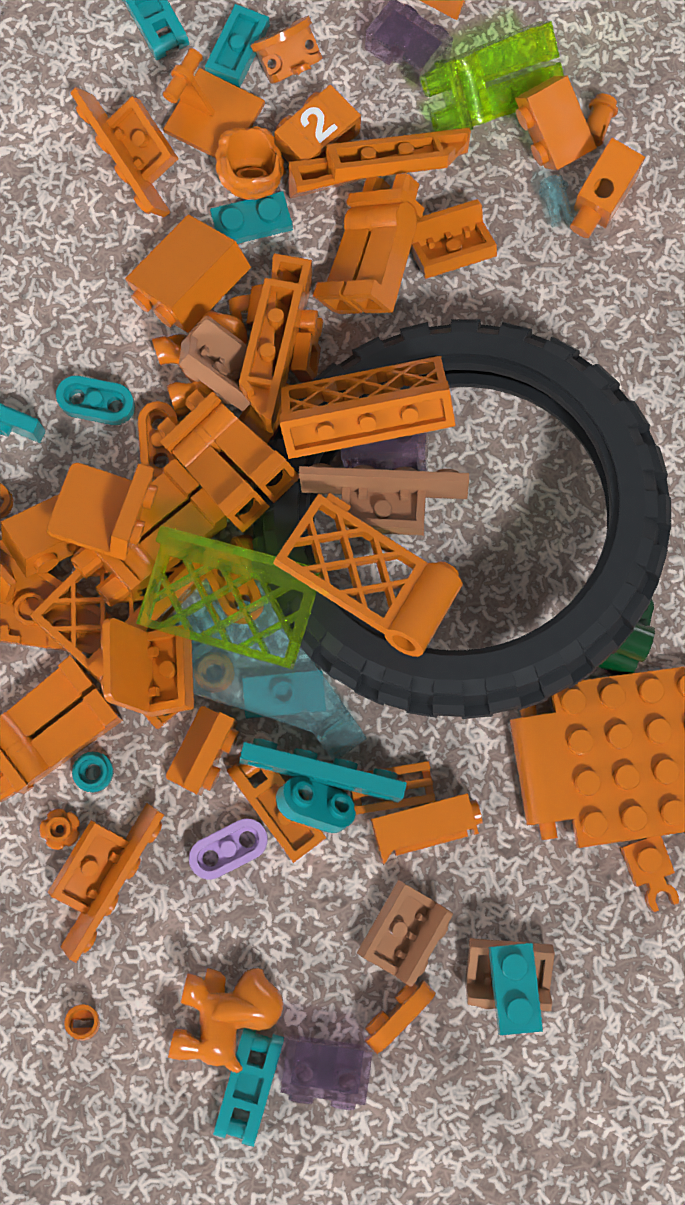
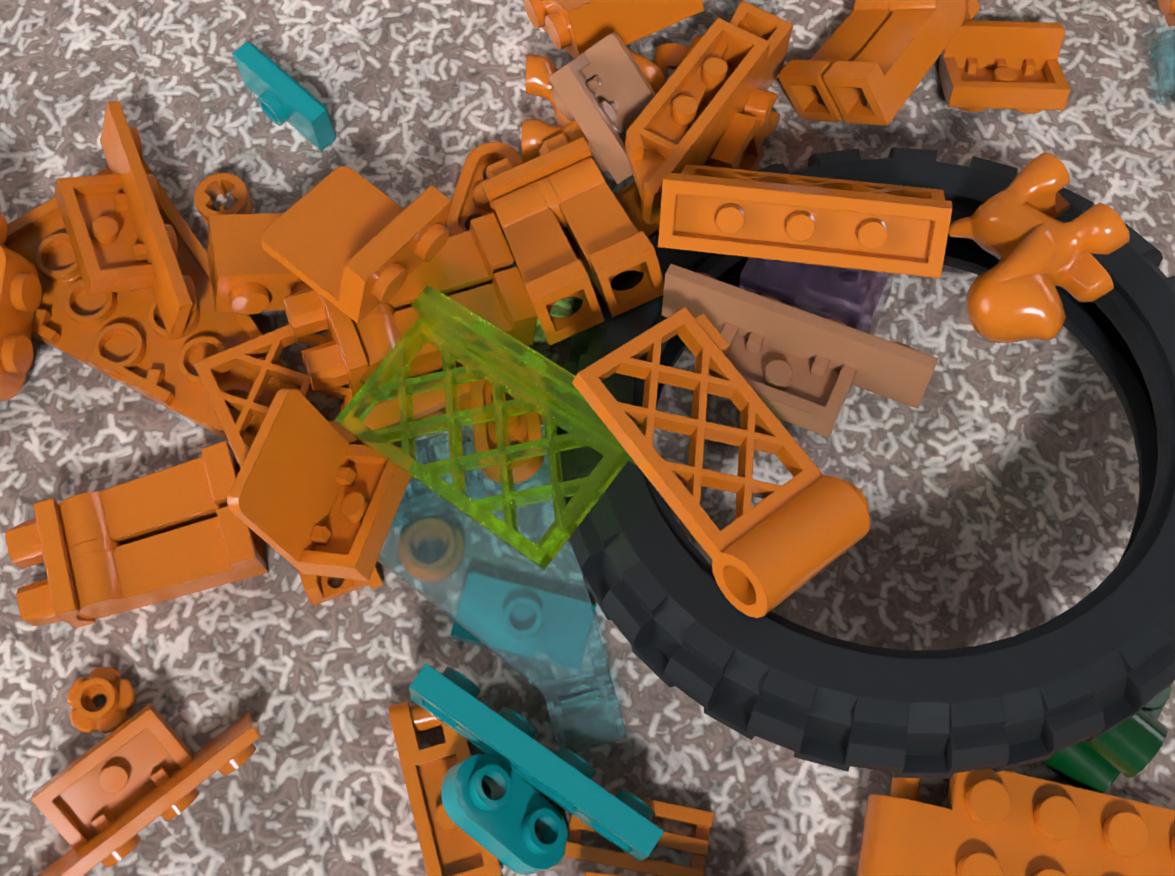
camera: 25 degrees right, 10 degrees down
(81, 765) = (172, 620): teal plate -> none
(96, 401) = (423, 119): teal plate -> none
(202, 749) = (356, 666): orange bracket -> none
(229, 849) = (342, 833): lavender plate -> none
(501, 413) = (1036, 254): none -> orange animal

